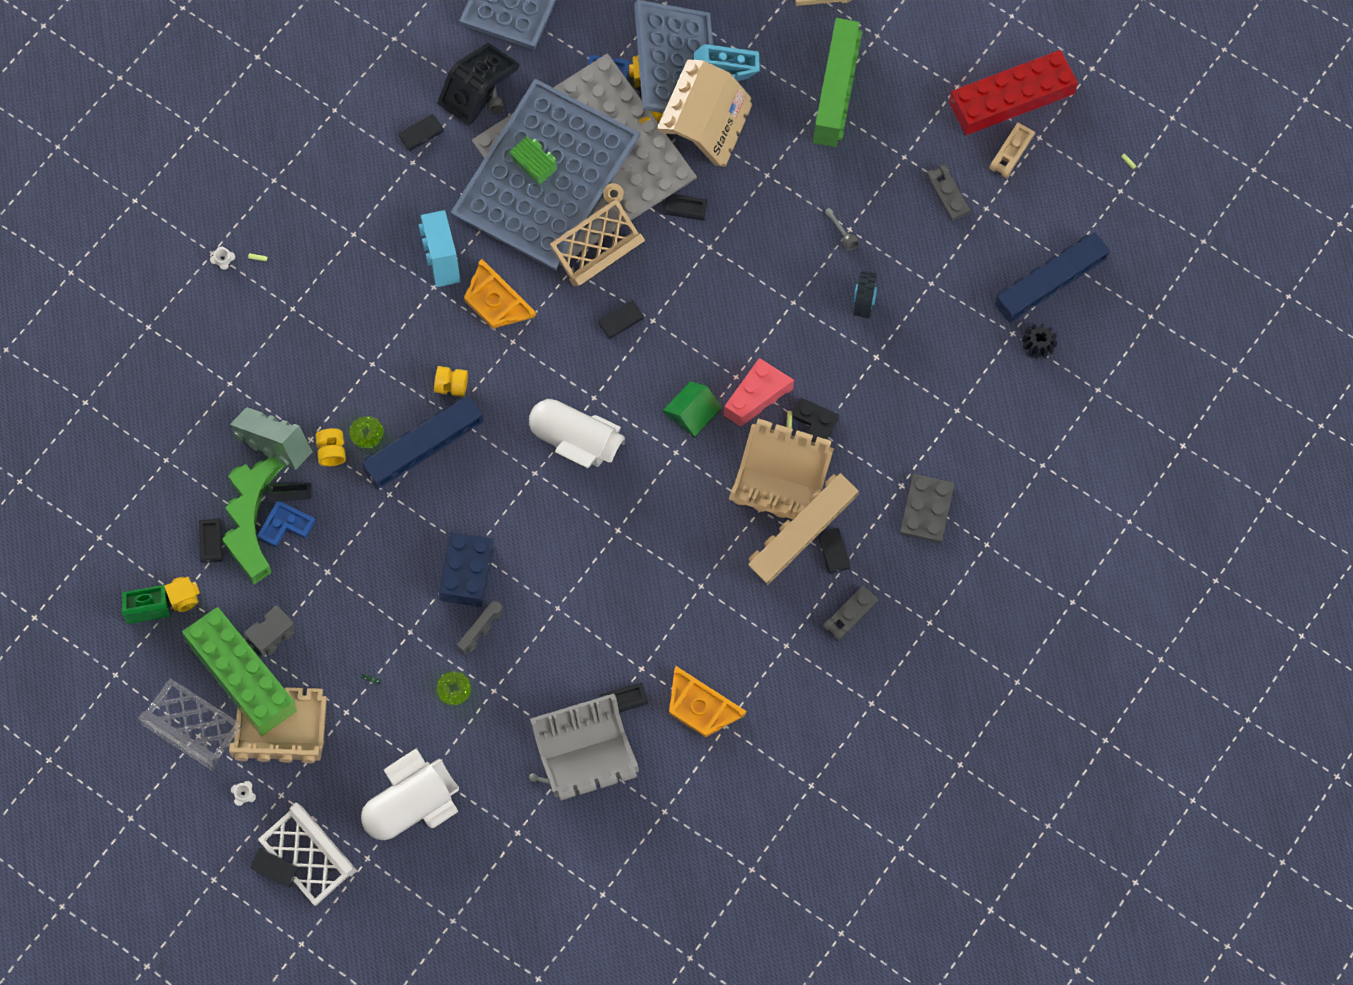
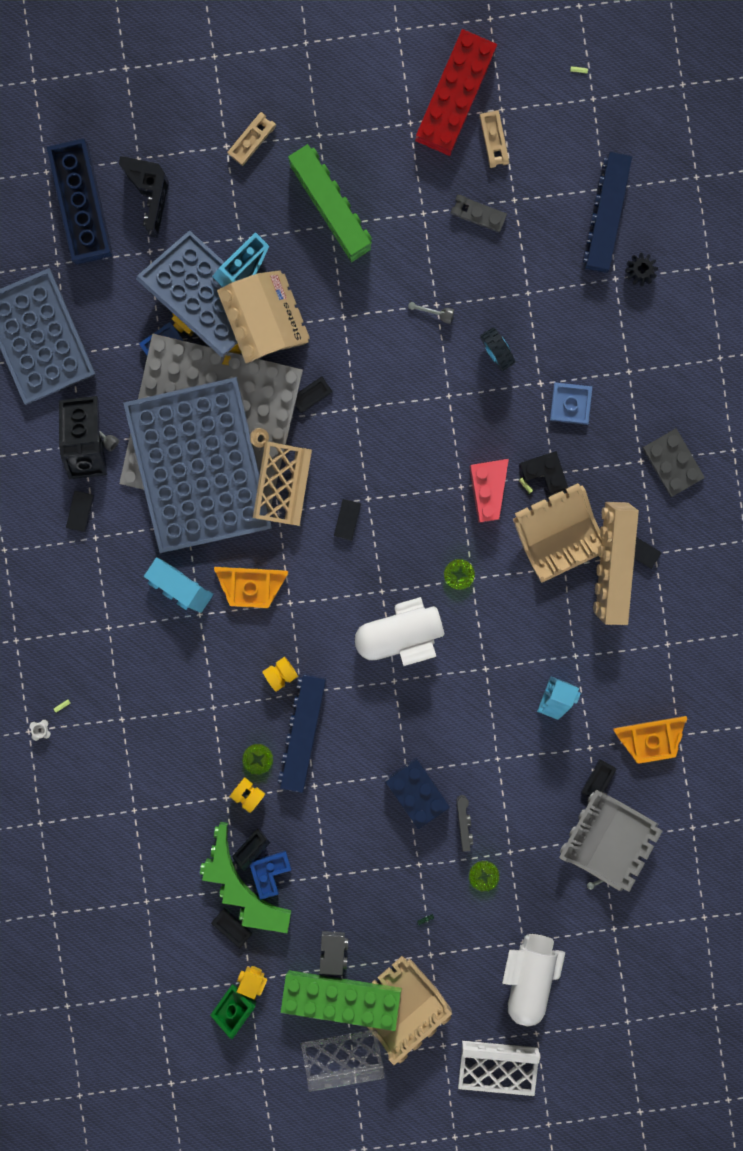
camera: 40 degrees left, 20 degrees up
(243, 787) = (421, 1075): white plate -> none
(272, 437) = (205, 831): sand green wedge -> none
(274, 867) = (487, 1097): black tile -> none
(533, 160) = (183, 466): bright green brick -> none
(656, 594) = (558, 698): none -> medium azure wedge
(670, 428) = (454, 566): none -> clear neon green gear
(693, 408) = (454, 538): green slope -> none
(851, 613) = (690, 583): dark grey plate -> none
(886, 392) = (571, 403): none -> medium blue tile

